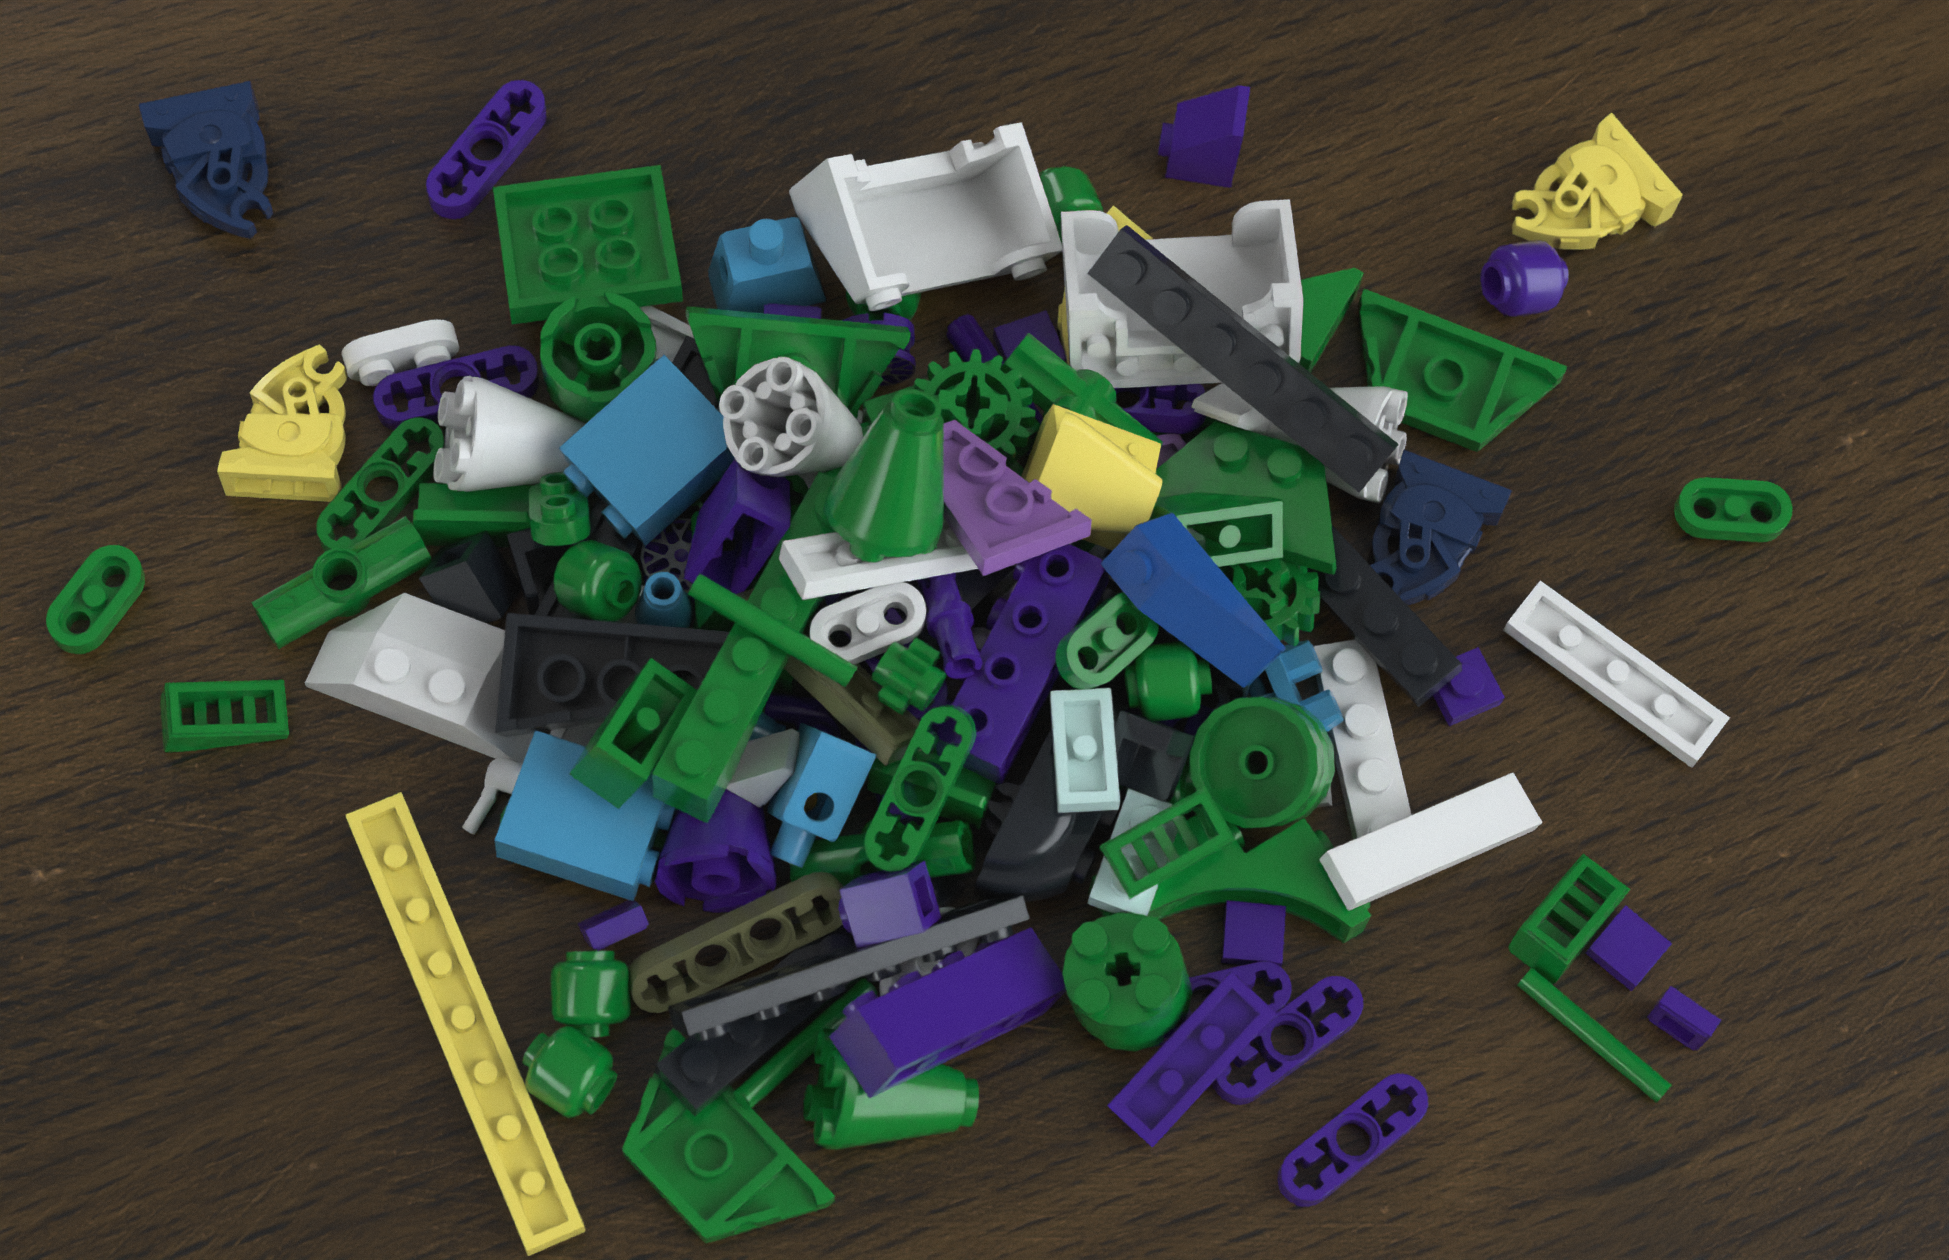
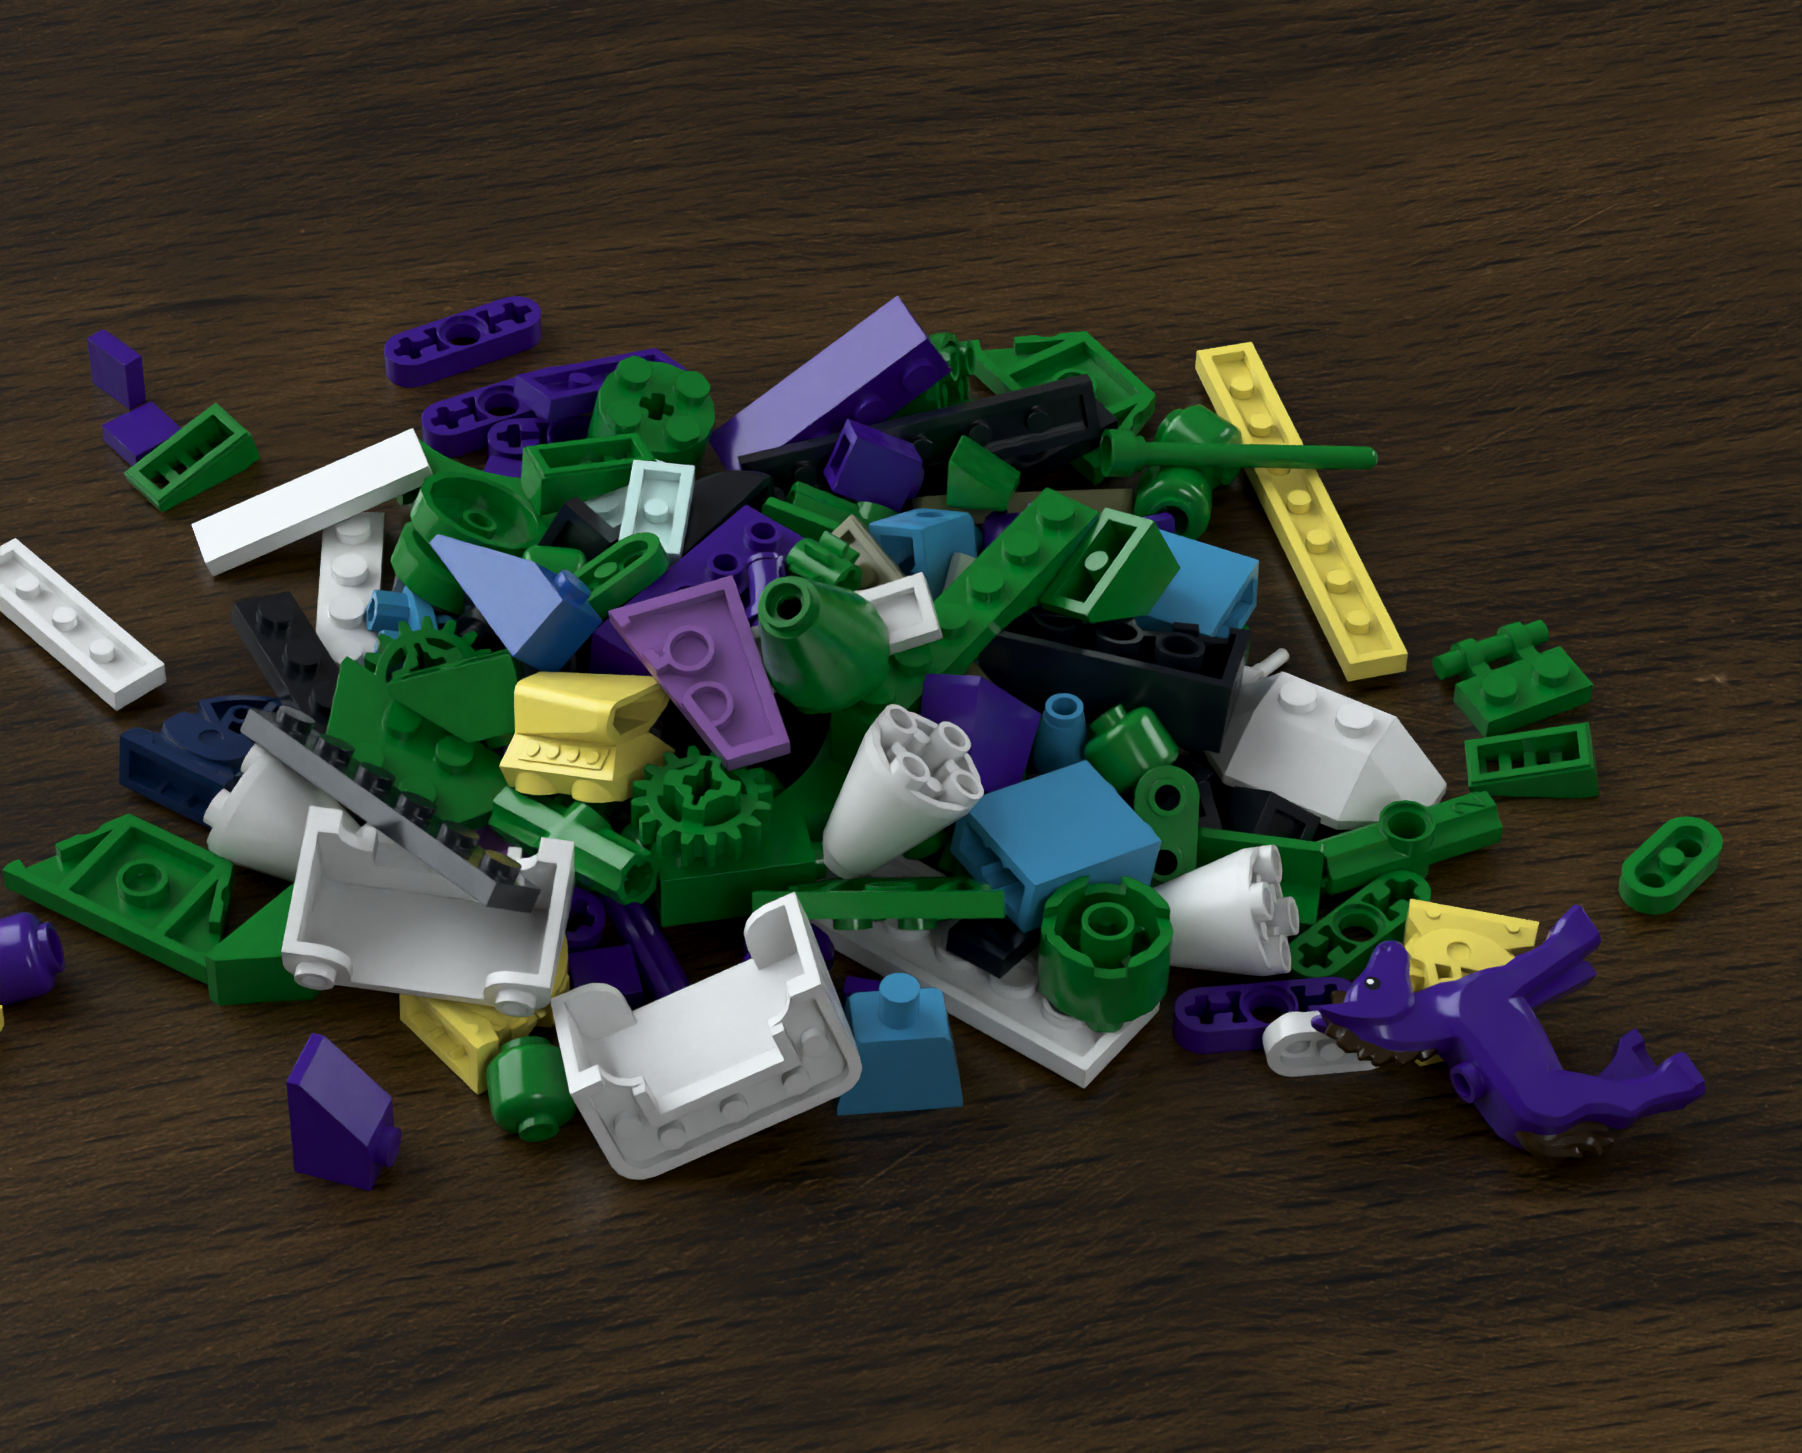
camera: 165 degrees left, 25 degrees down
(209, 148) = (1547, 1269): dark blue piece -> none
(234, 812) = (1517, 693): none -> green plate
(255, 319) = (1499, 1048): none -> dark purple animal
(481, 173) = (1208, 1274): dark purple beam -> none
(586, 240) = (1104, 1101): green plate -> none
(638, 992) = (1124, 453): none -> green piece
(772, 630) = (963, 591): green bar -> none
(777, 897) = (979, 478): none -> green slope
(887, 822) = (827, 500): green beam -> none
(1469, 691) = (219, 645): dark purple plate -> none
(1594, 1035) = (201, 381): green bar -> none

